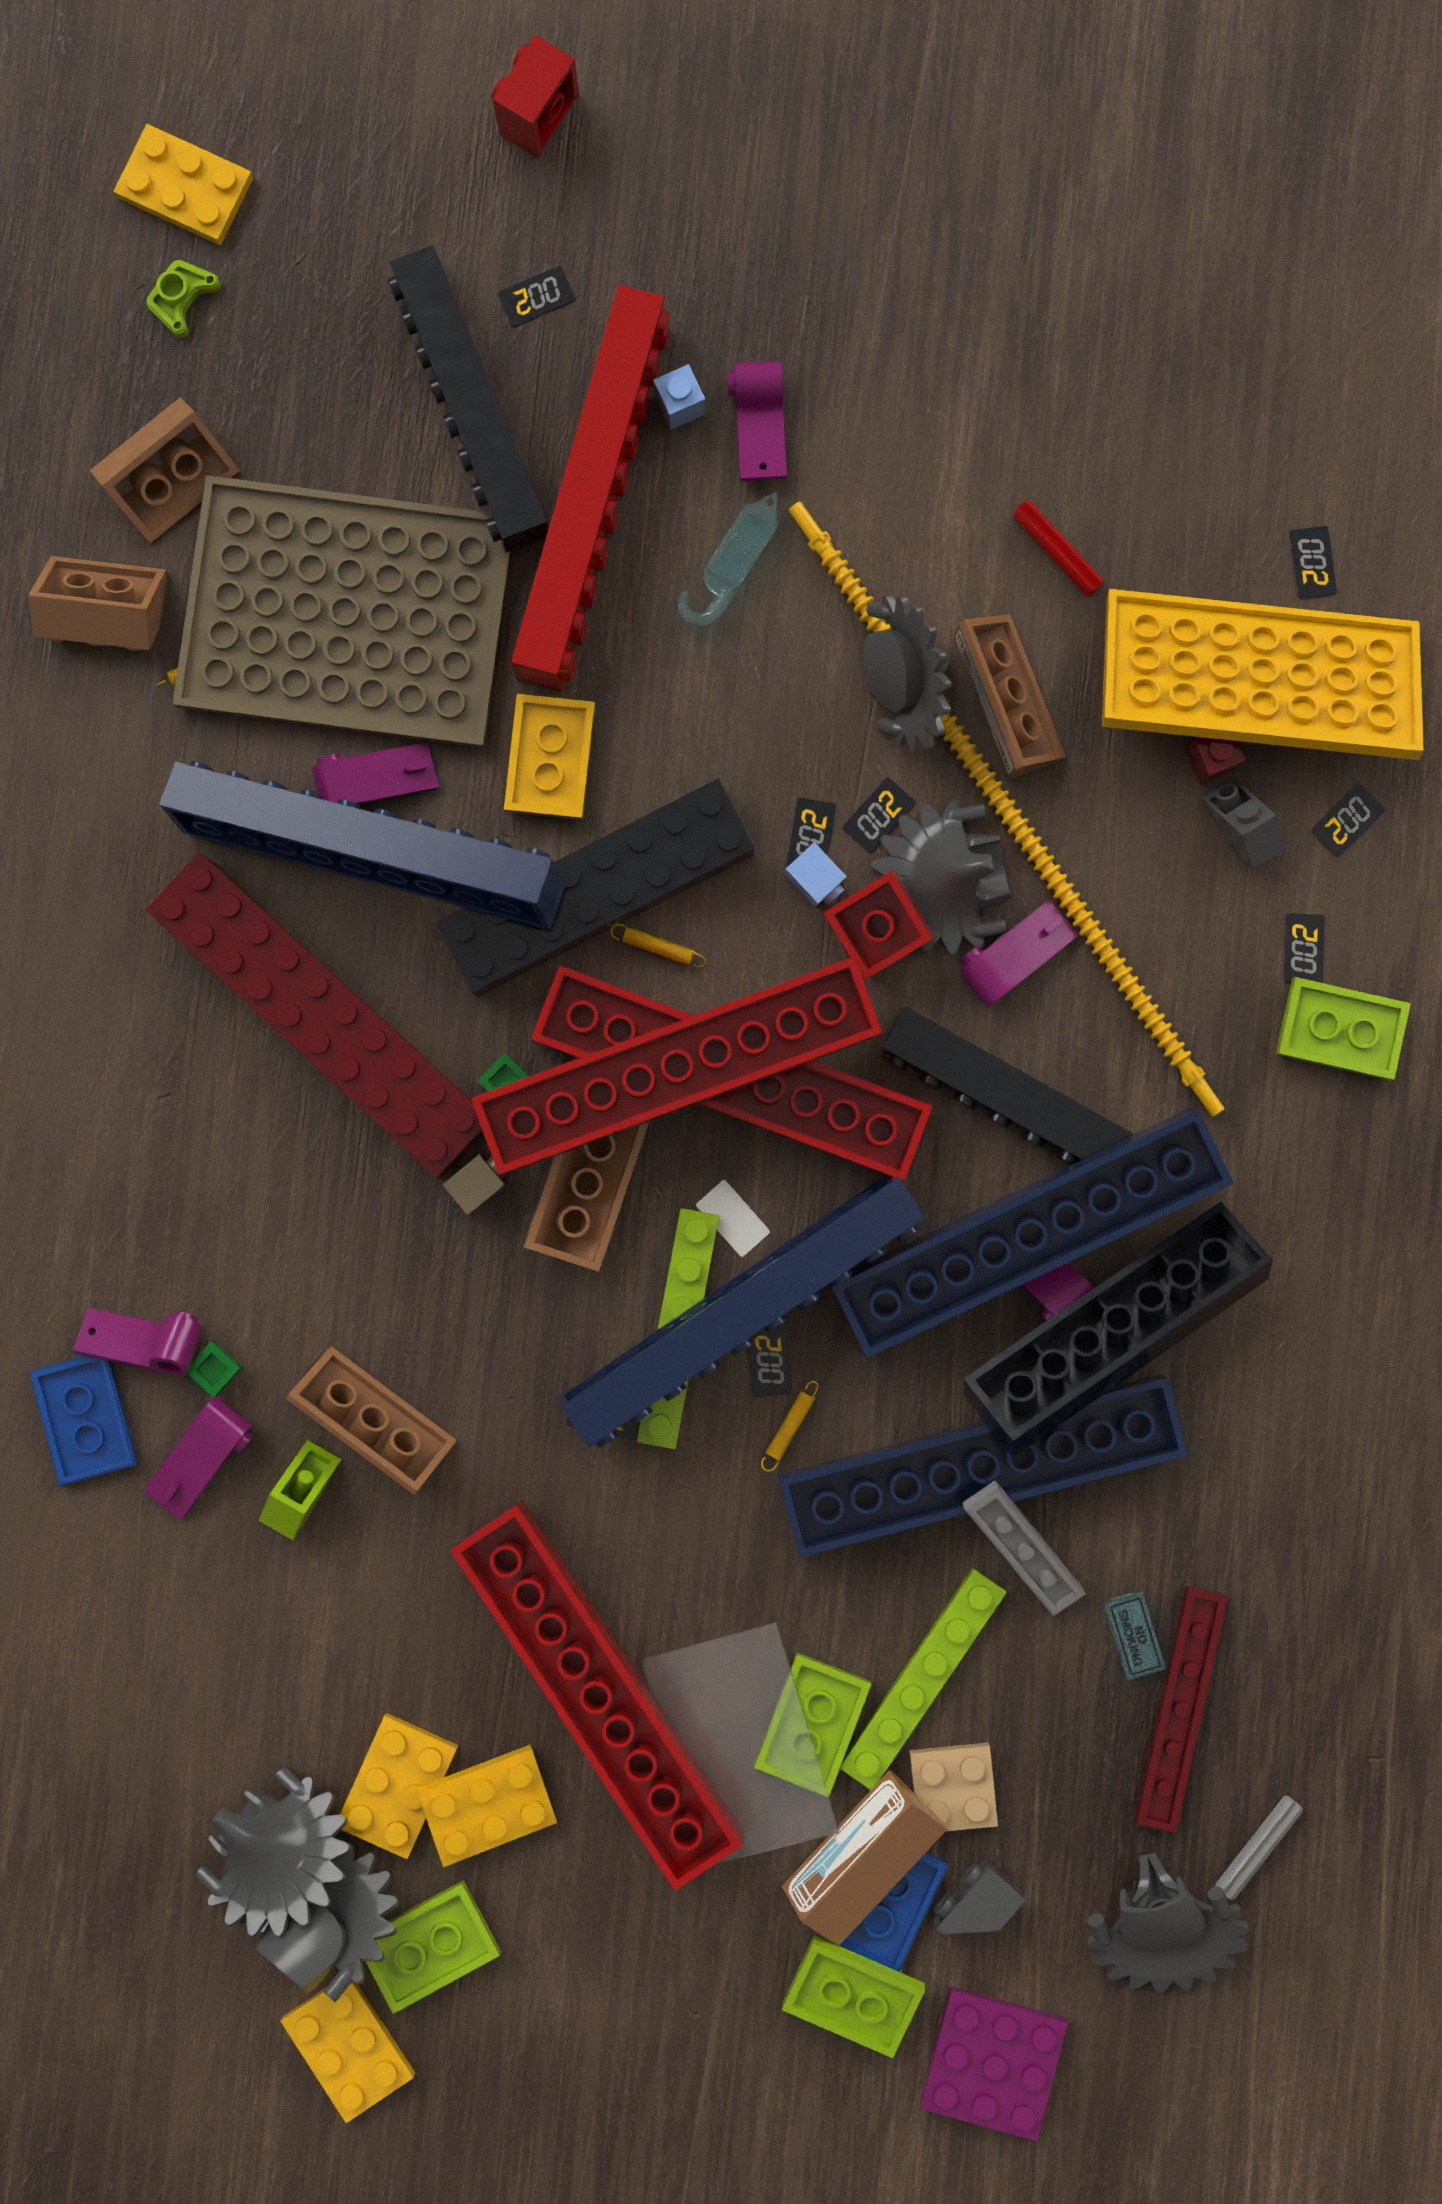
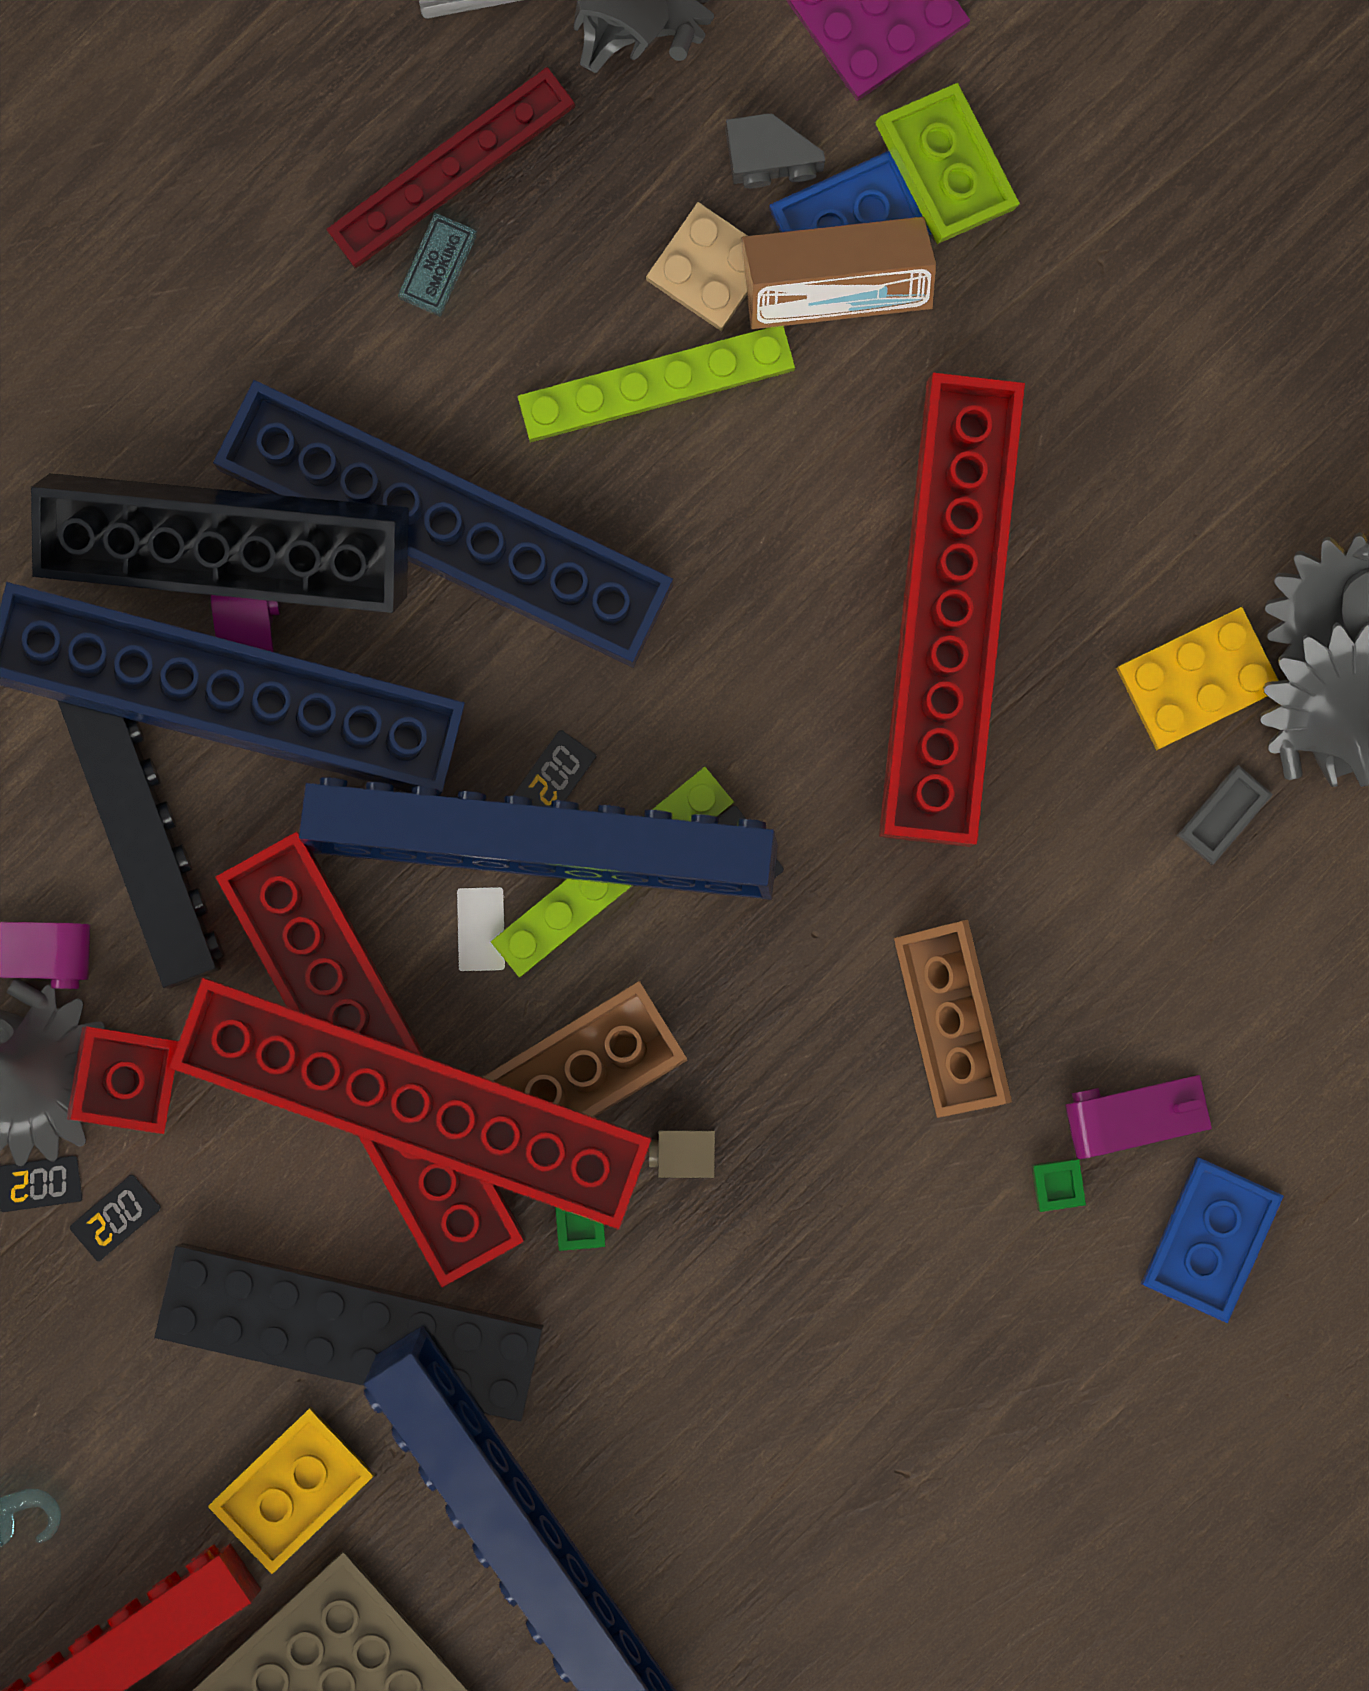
camera: 140 degrees left, 0 degrees up
(140, 1342) = (1105, 1263): magenta door -> none
(299, 1490) = (1070, 1011): lime slope -> none
(305, 1708) = (1224, 814): none -> dark grey tile
(318, 1014) = (698, 1428): dark red brick -> none
(376, 774) = (464, 1608): magenta door -> none
(433, 1947) = (1280, 511): lime plate -> none
(486, 1805) = (1132, 594): yellow plate -> none
(658, 946) = (339, 1232): yellow piece -> none
(723, 1706) = (851, 464): clear piece -> none
(790, 1426) = (586, 701): yellow piece -> none
(816, 876) = (142, 1174): light blue brick -> none
(831, 1709) = (786, 424): lime plate -> none
(1023, 1548) = (468, 421): light grey tile -> none

